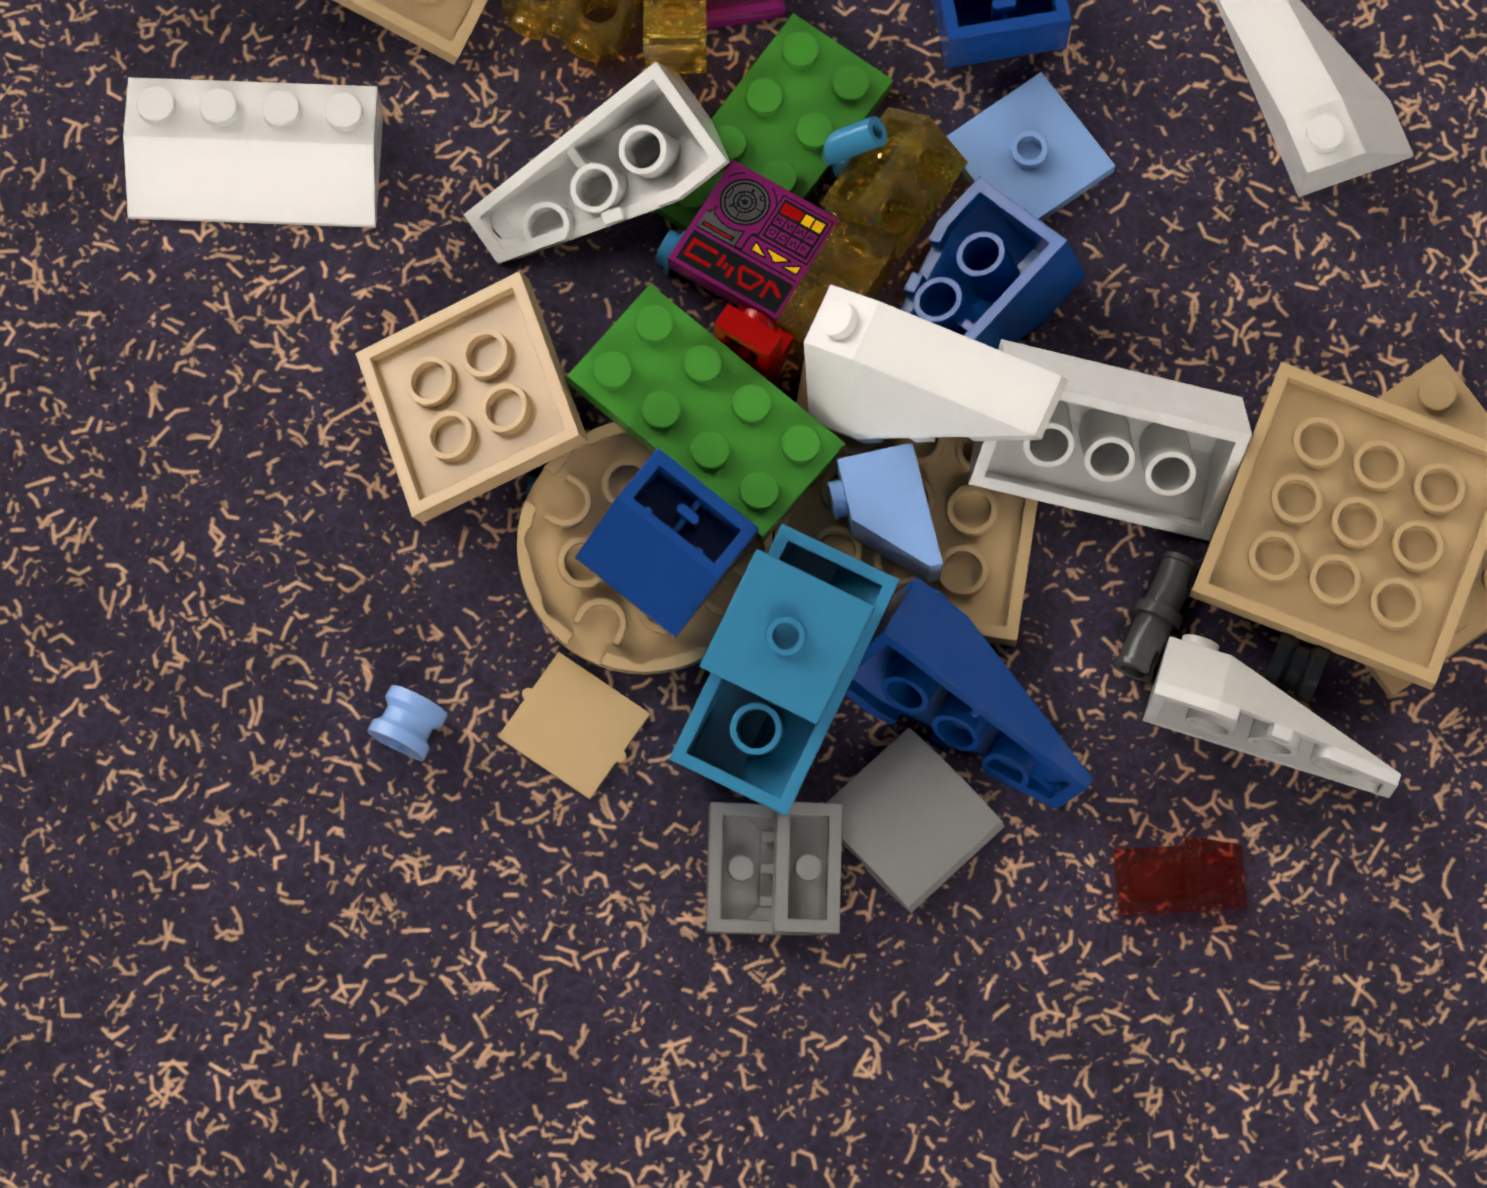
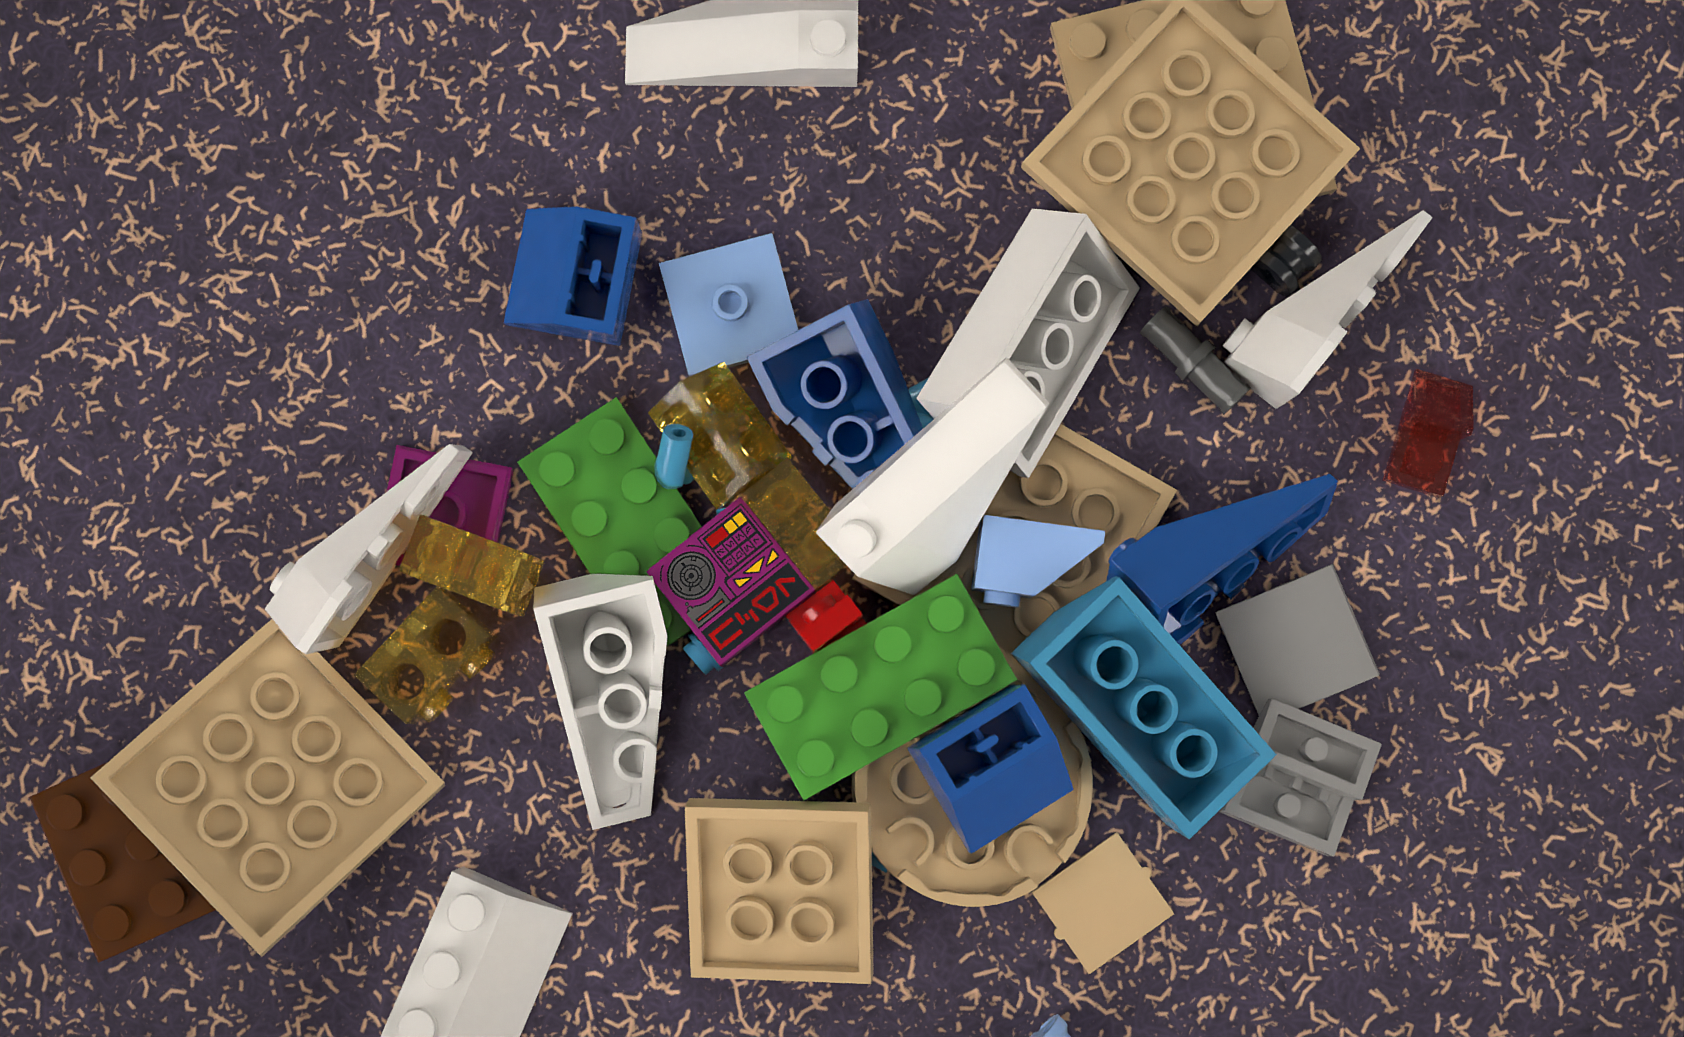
camera: 70 degrees left, 10 degrees up
(787, 636) = (1133, 696): dark azure plate -> none

